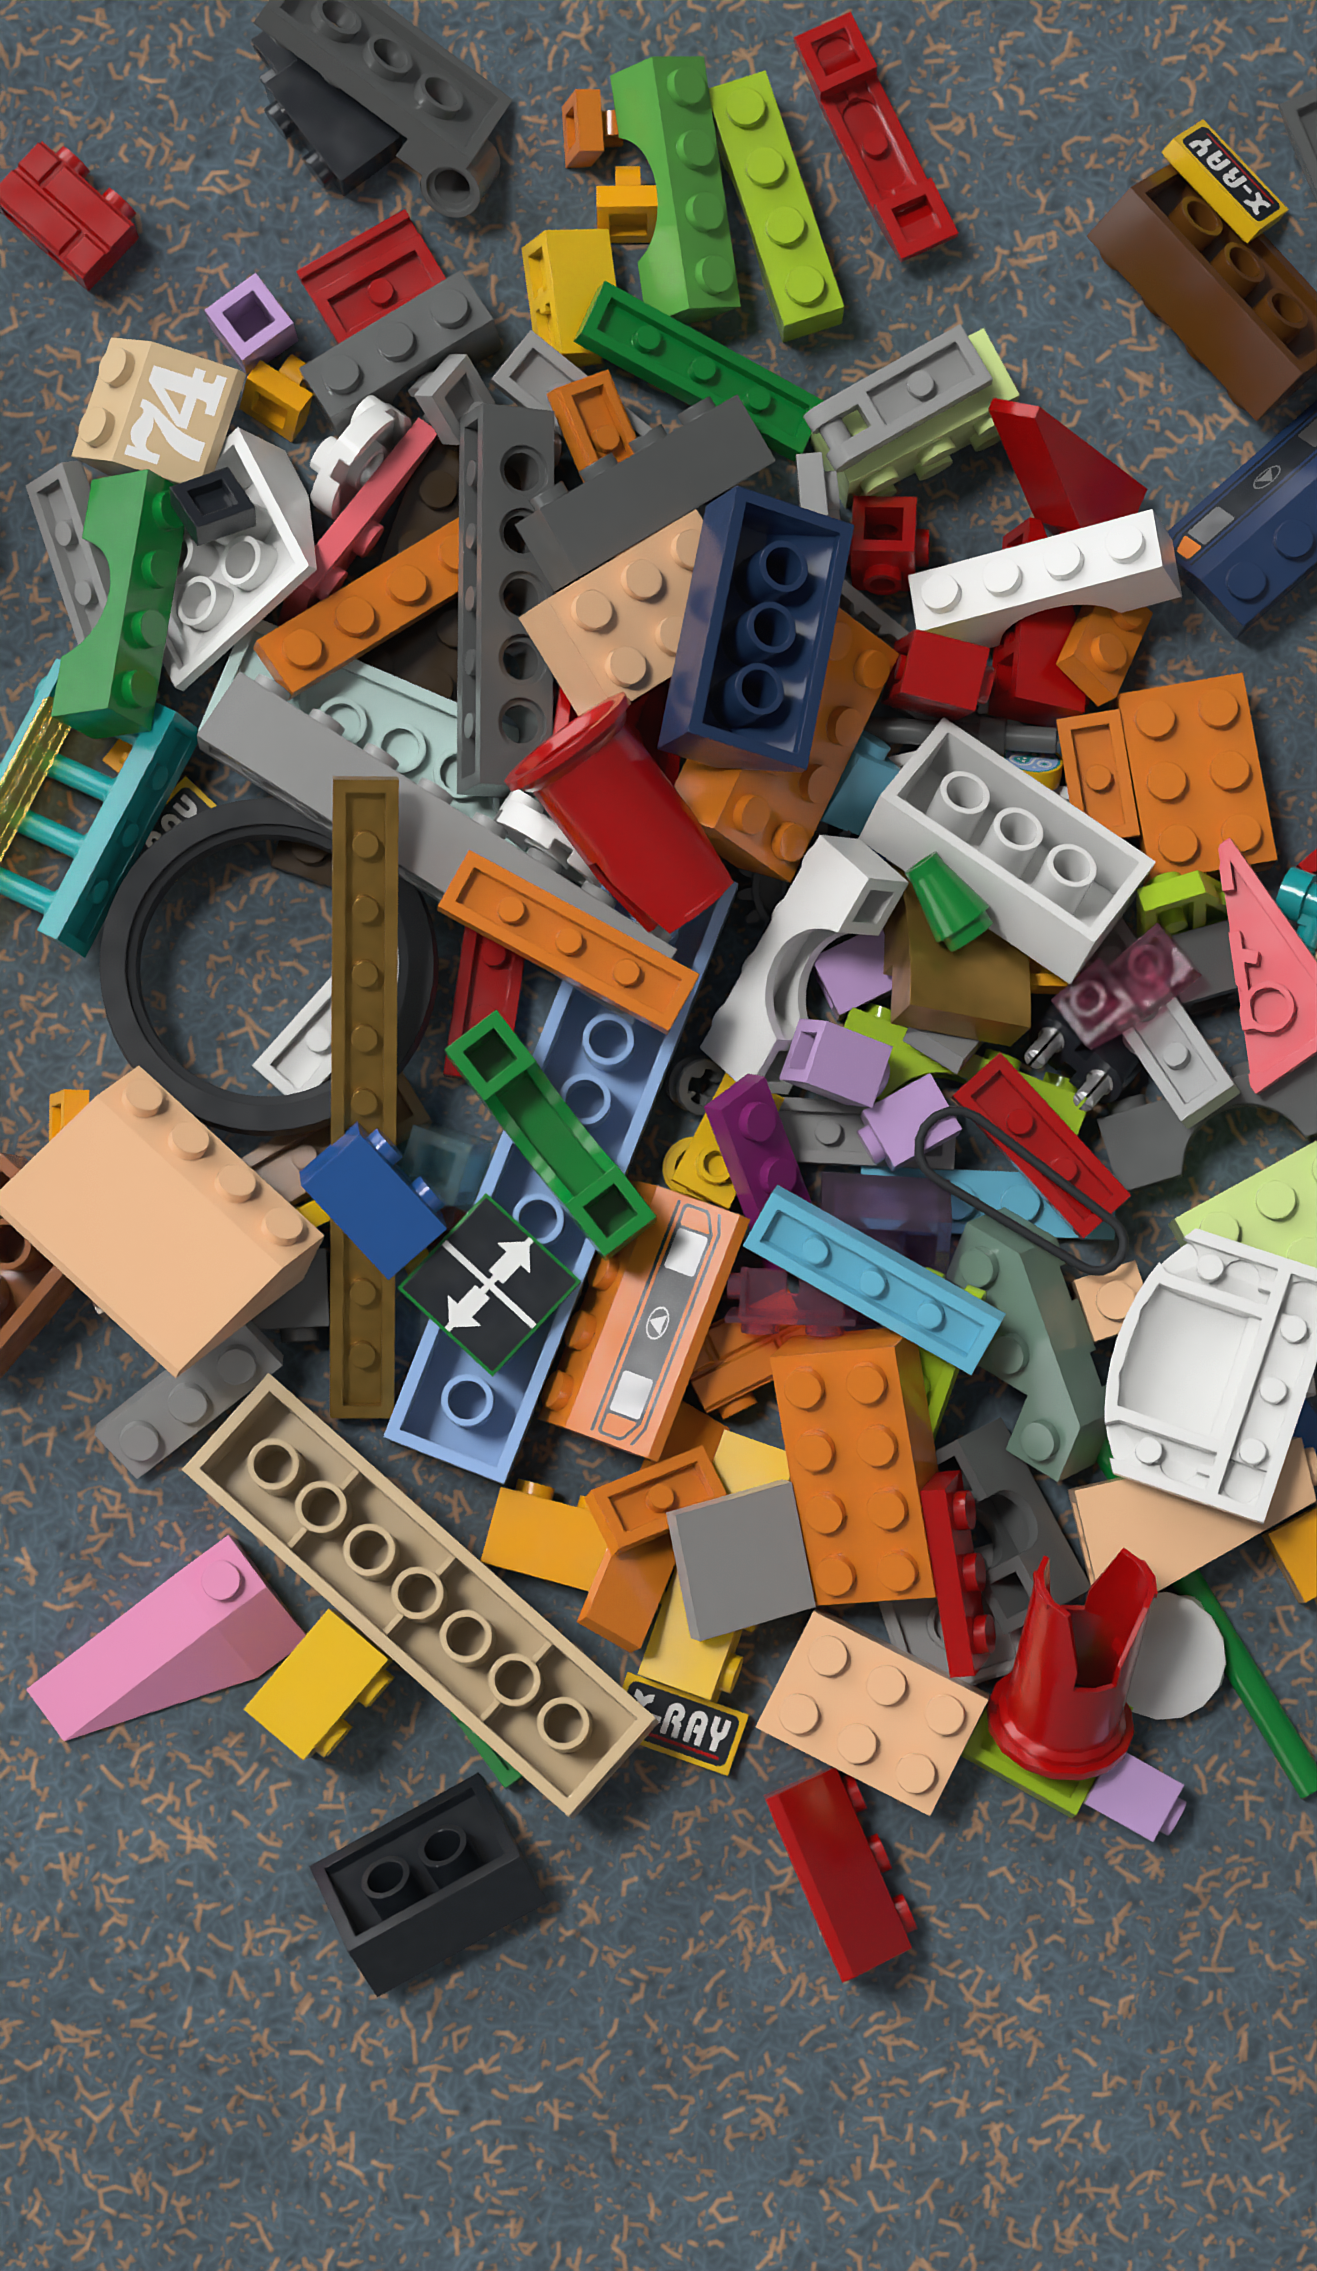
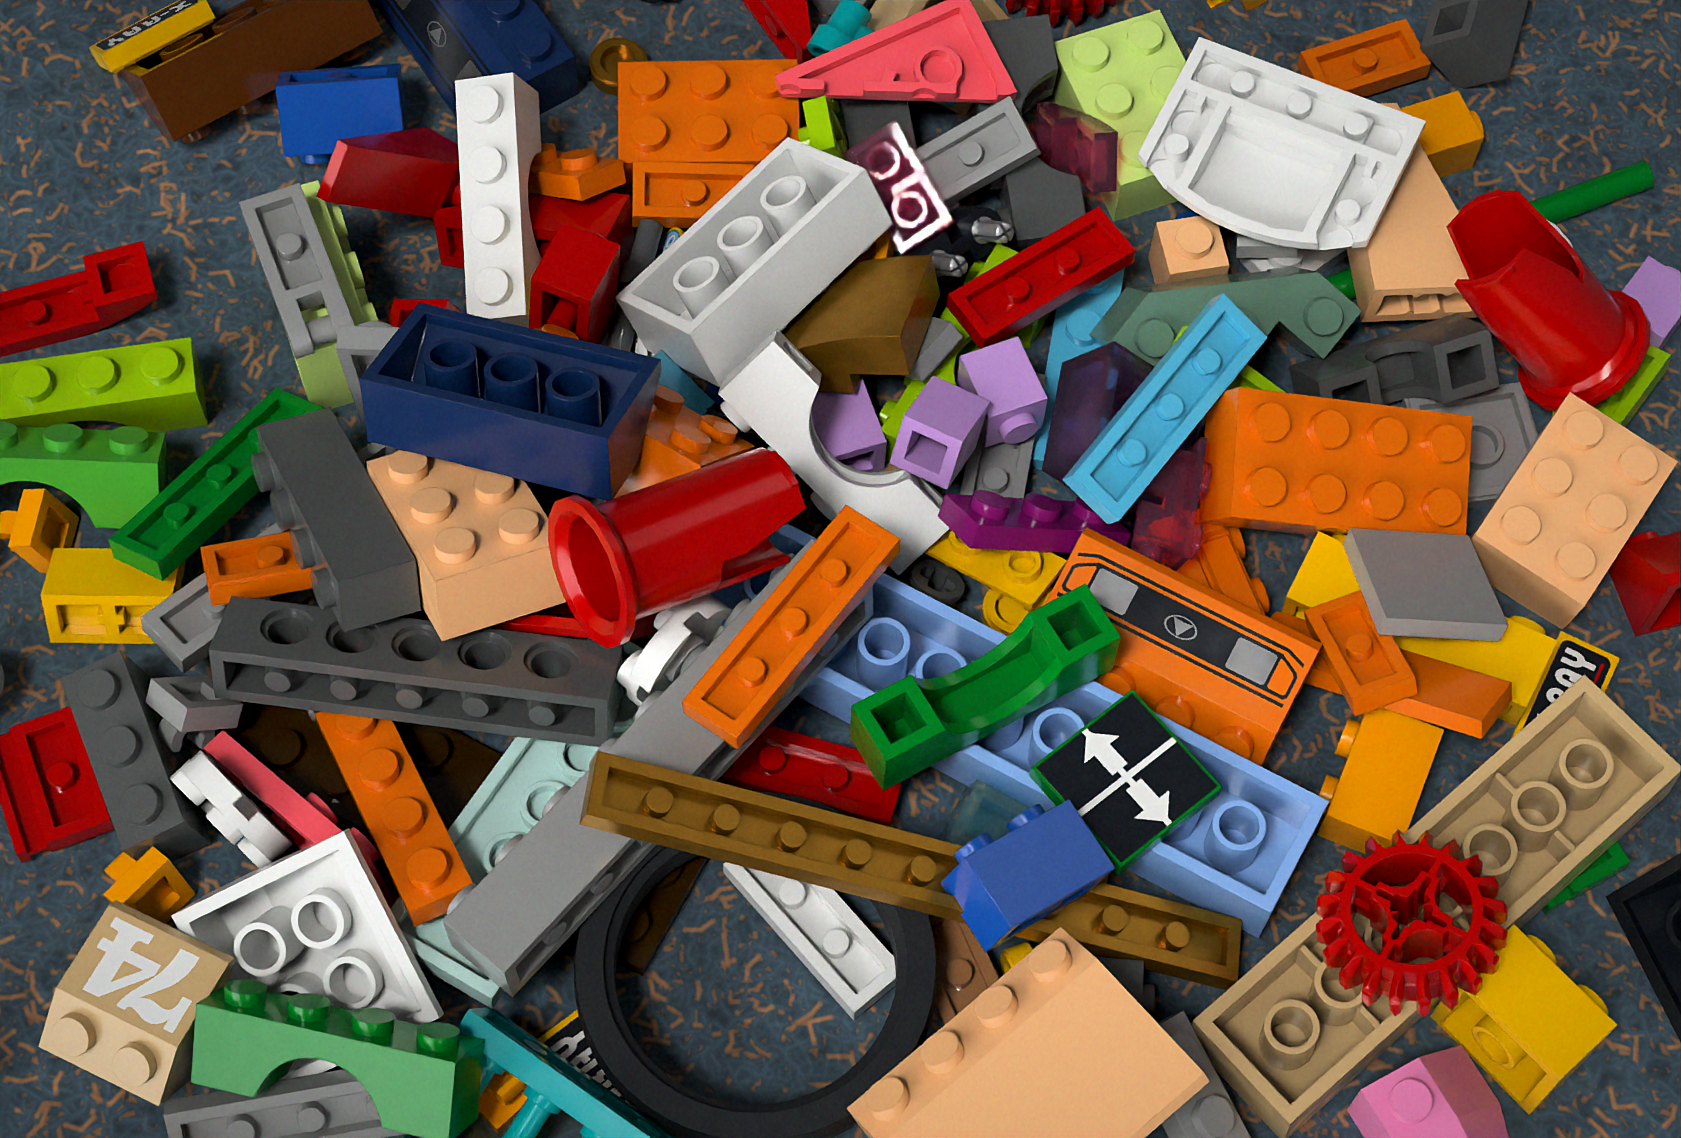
camera: 85 degrees left, 20 degrees down
(212, 506) = (253, 937): black plate -> none
(251, 324) = (60, 899): lavender brick -> none
(342, 1543) = (1456, 953): none -> red gear
(948, 902) = (805, 297): green cone -> none
(957, 1573) = (1495, 409): red plate -> none
(1005, 1220) = (1064, 272): black piece -> none
(1150, 398) = (337, 104): none -> blue brick
(1222, 1165) = (1077, 145): none -> clear pink slope
(1273, 674) = (605, 59): none -> pearl gold tile

